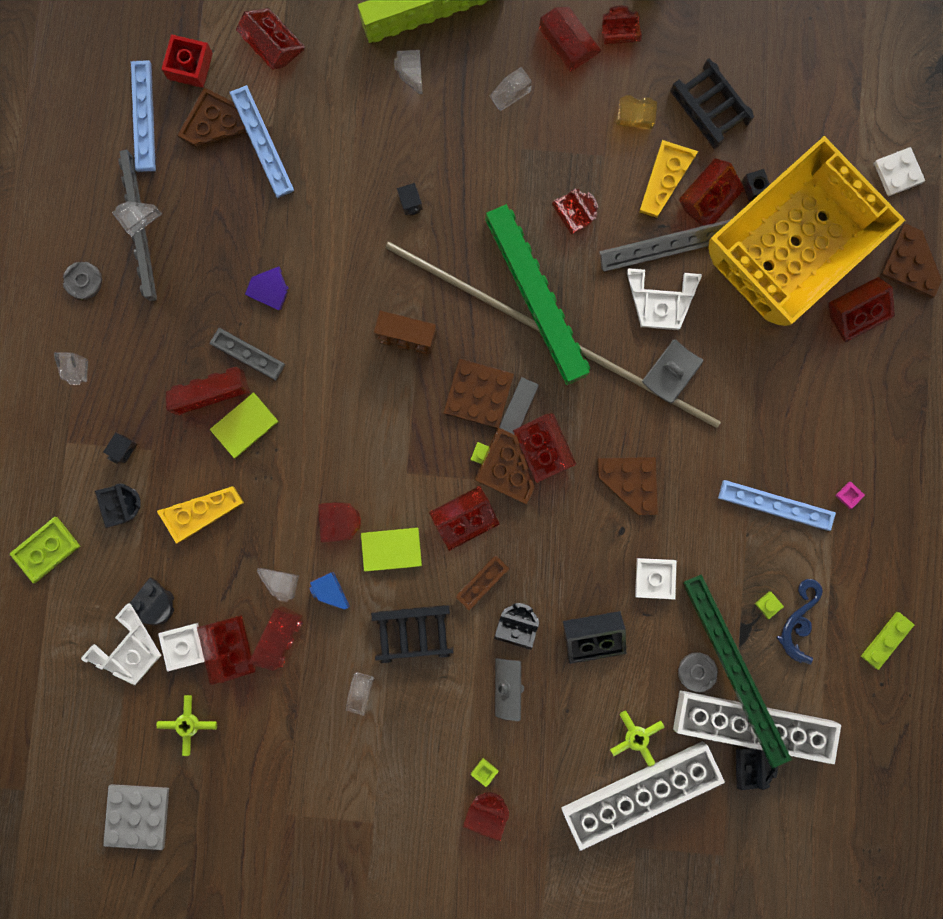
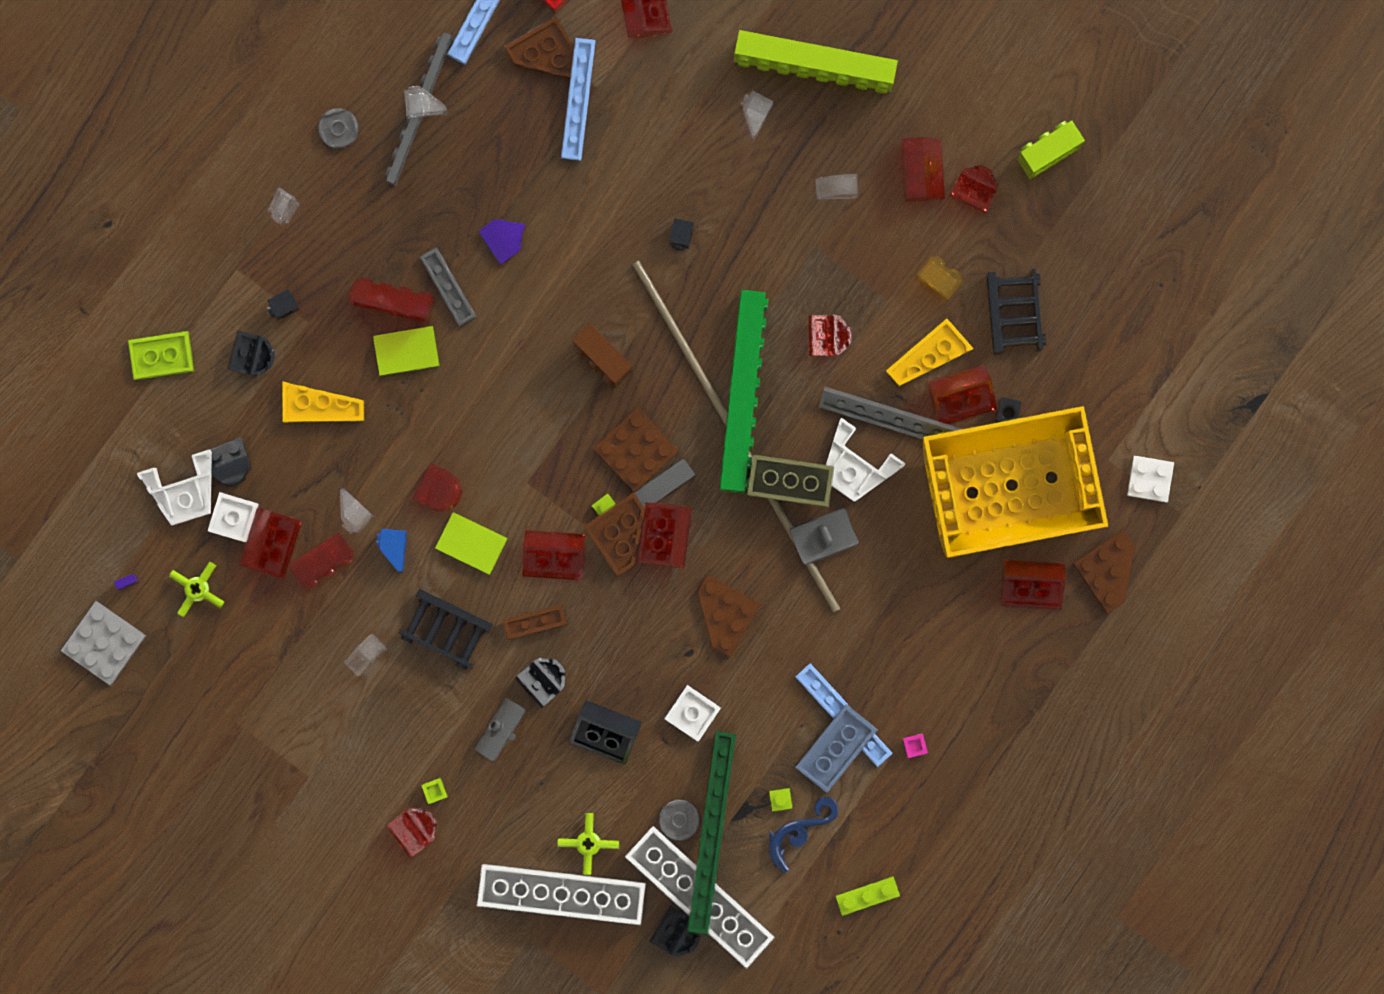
camera: 30 degrees right, 0 degrees up
(124, 755) = (126, 582): none -> dark purple tile
(621, 341) = (791, 481): none -> olive brick
(789, 536) = (836, 748): none -> sand blue tile

